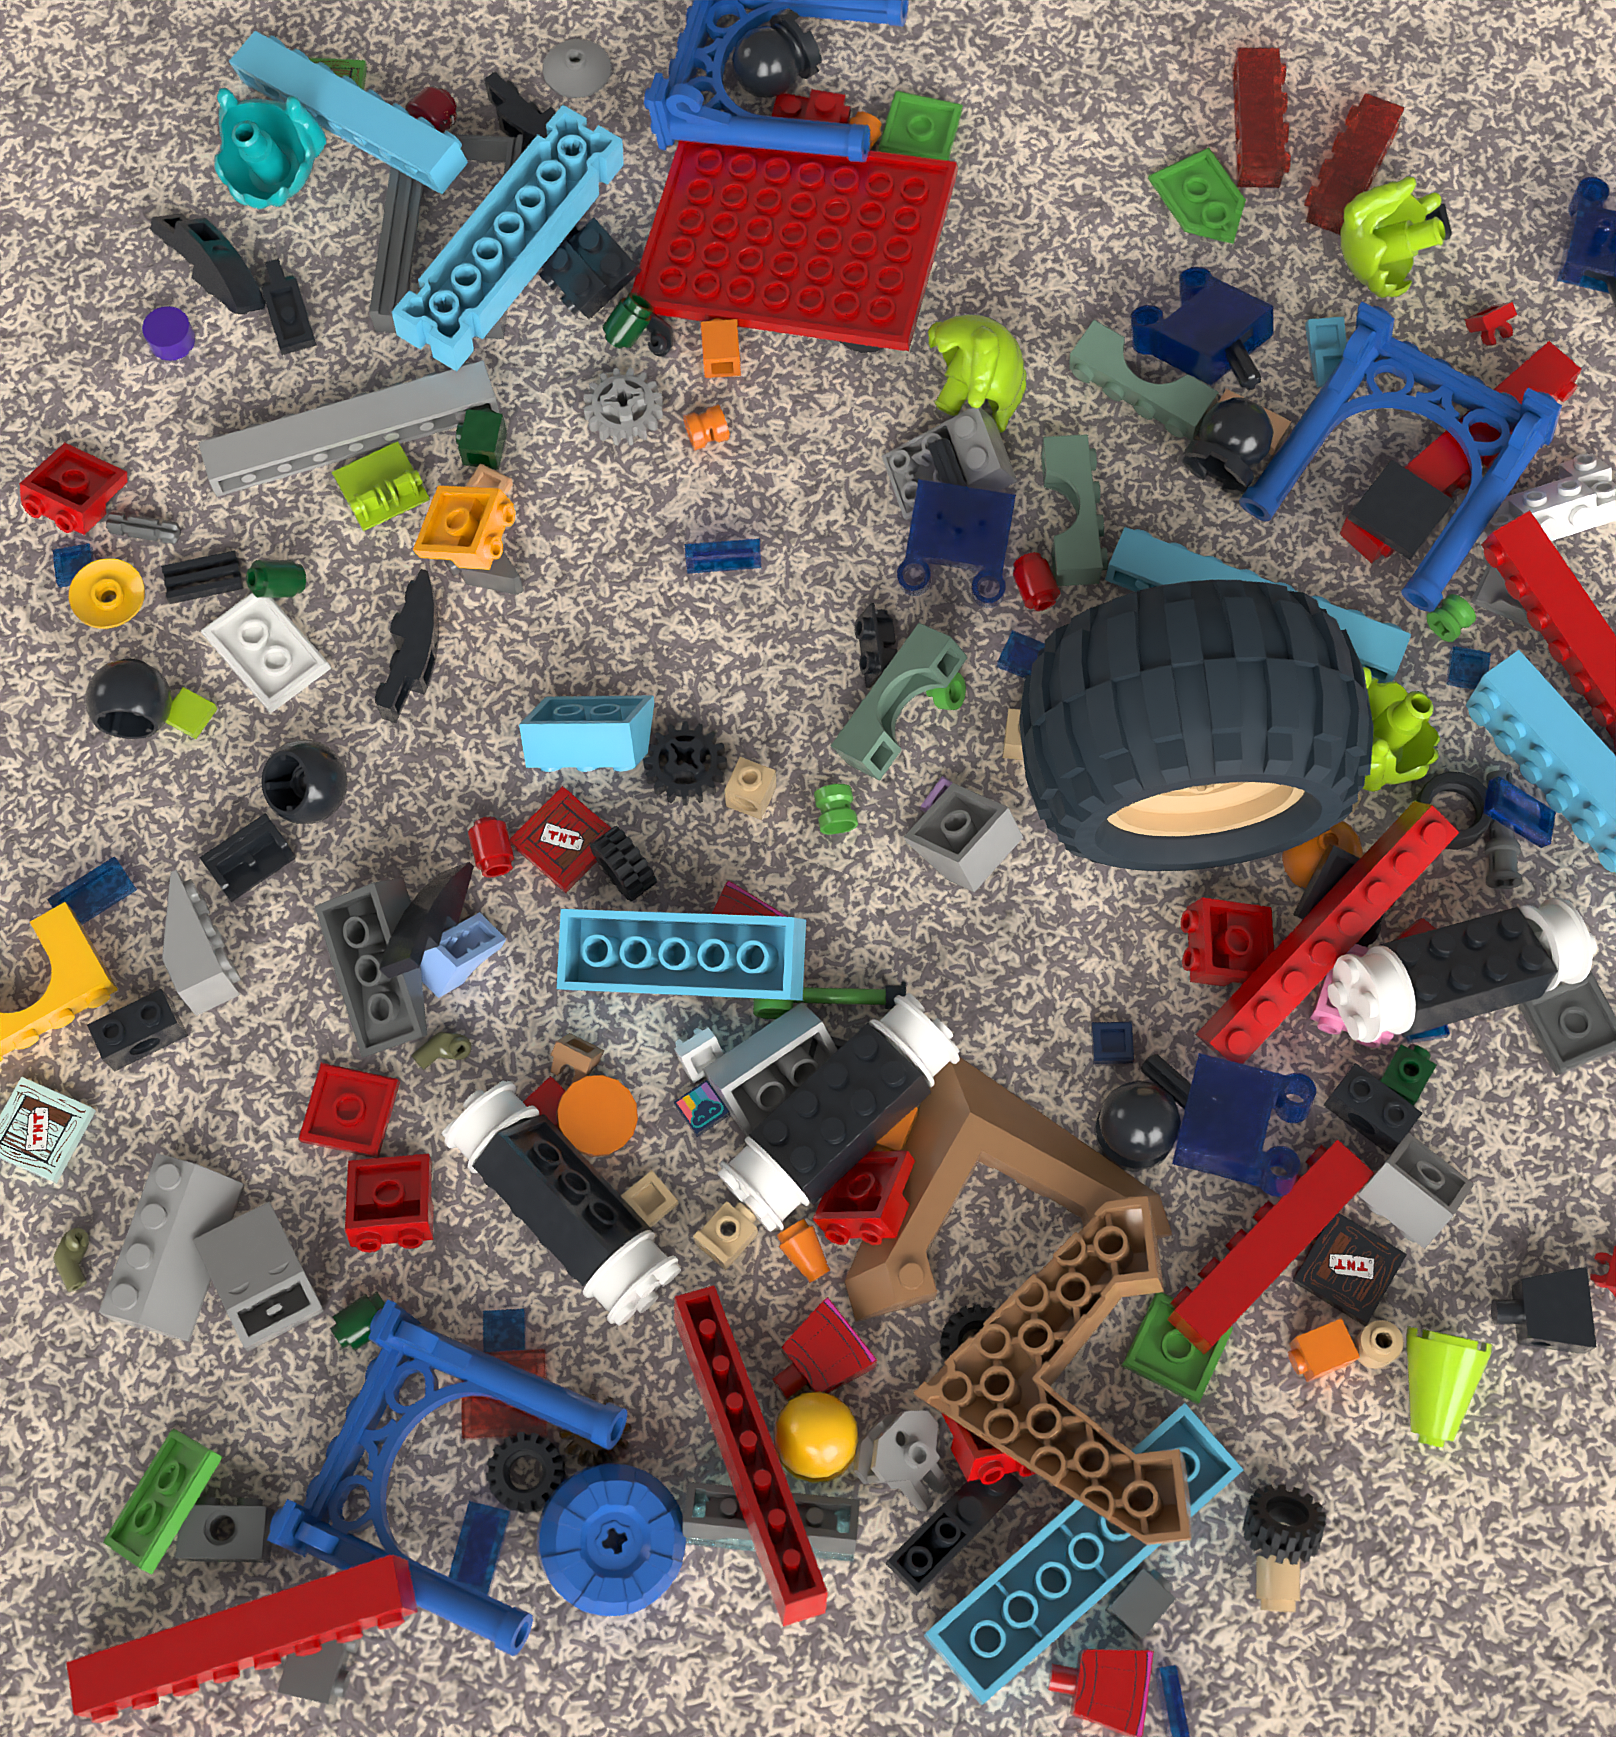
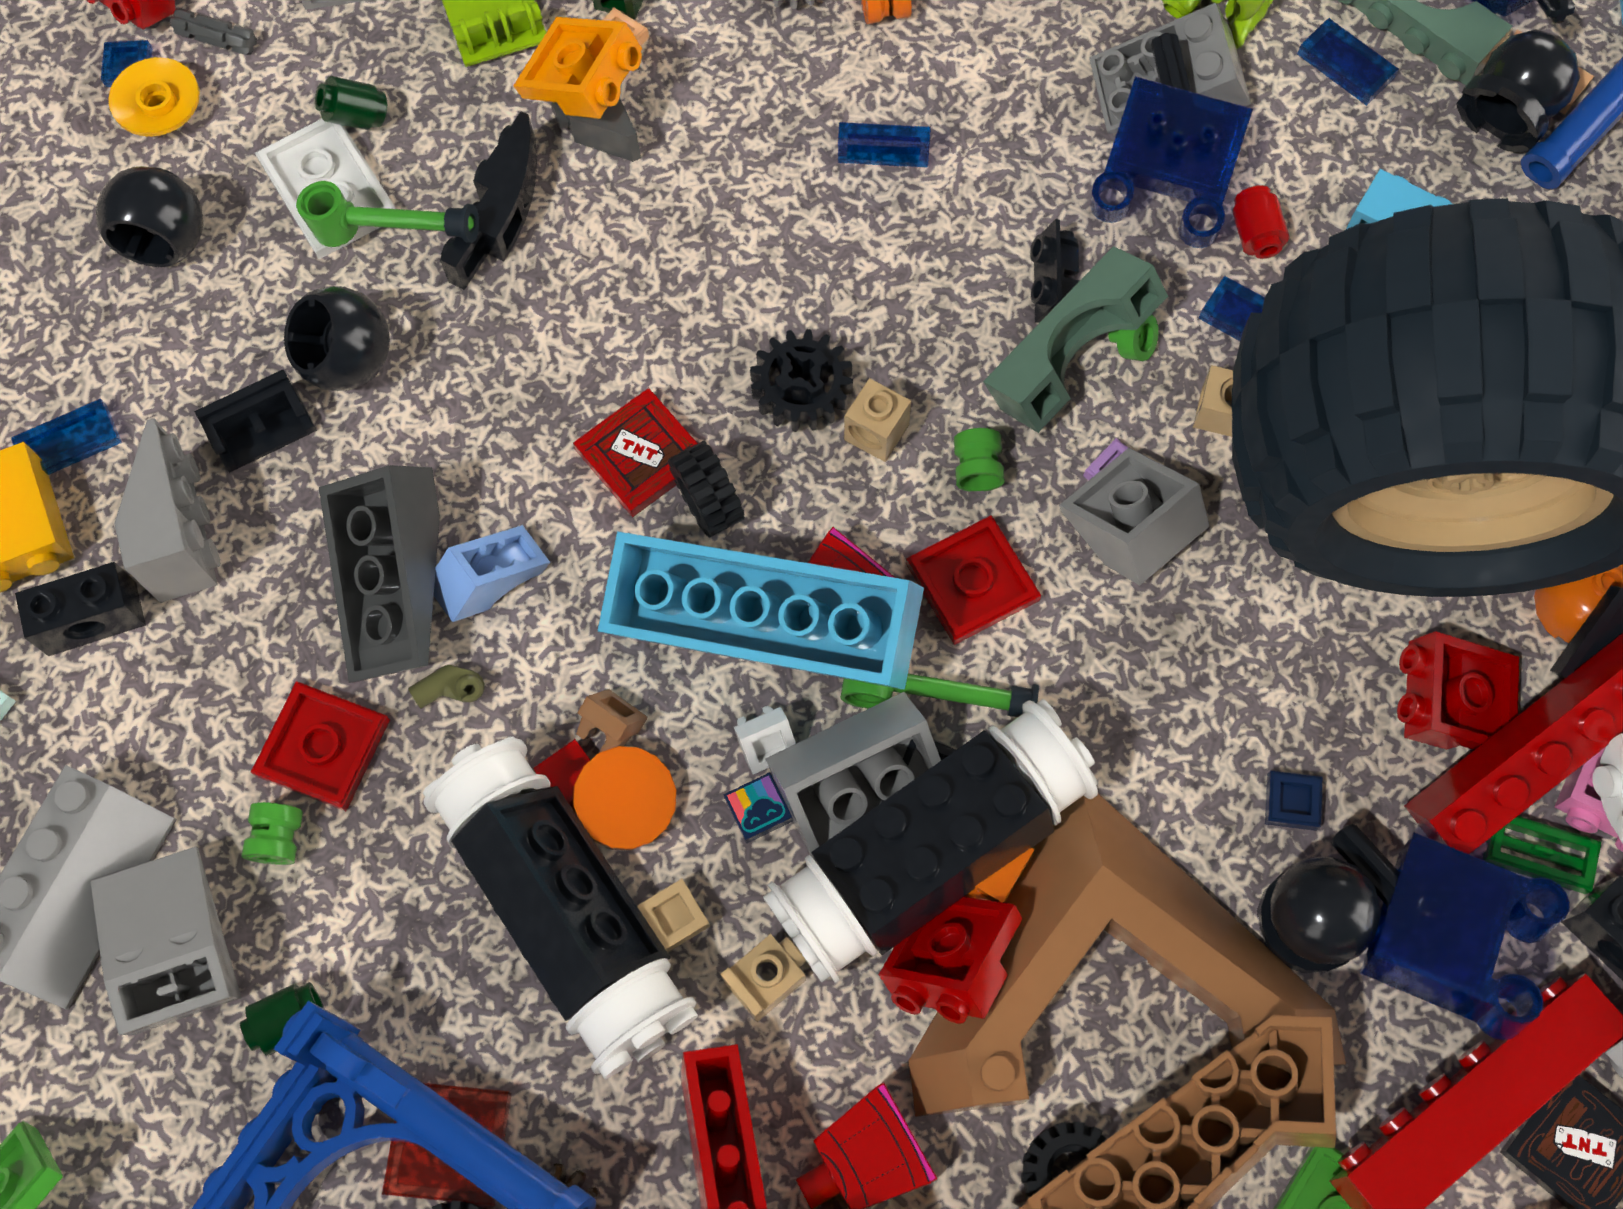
camera: 10 degrees right, 0 degrees up
(190, 713) = (224, 245): lime tile -> none
(222, 564) = (269, 87): black tile -> none
(289, 683) = (336, 220): none -> bright green piece
(325, 1183) = (272, 833): none -> bright green wheel
(389, 1202) = (345, 870): red plate -> none
(425, 919) = (445, 525): black slope -> none
(491, 847) = (549, 448): red brick -> none
(504, 1330) = (462, 1058): clear blue tile -> none
(587, 732) = (688, 327): medium azure slope -> none
(804, 1250) = (861, 1011): orange cone -> none
(844, 905) = (973, 579): none -> red tile
(1068, 470) = (1316, 100): sand green arch -> none
(1103, 435) = (1347, 61): none -> clear blue tile
(1304, 1039) = (1588, 866): none -> green tile

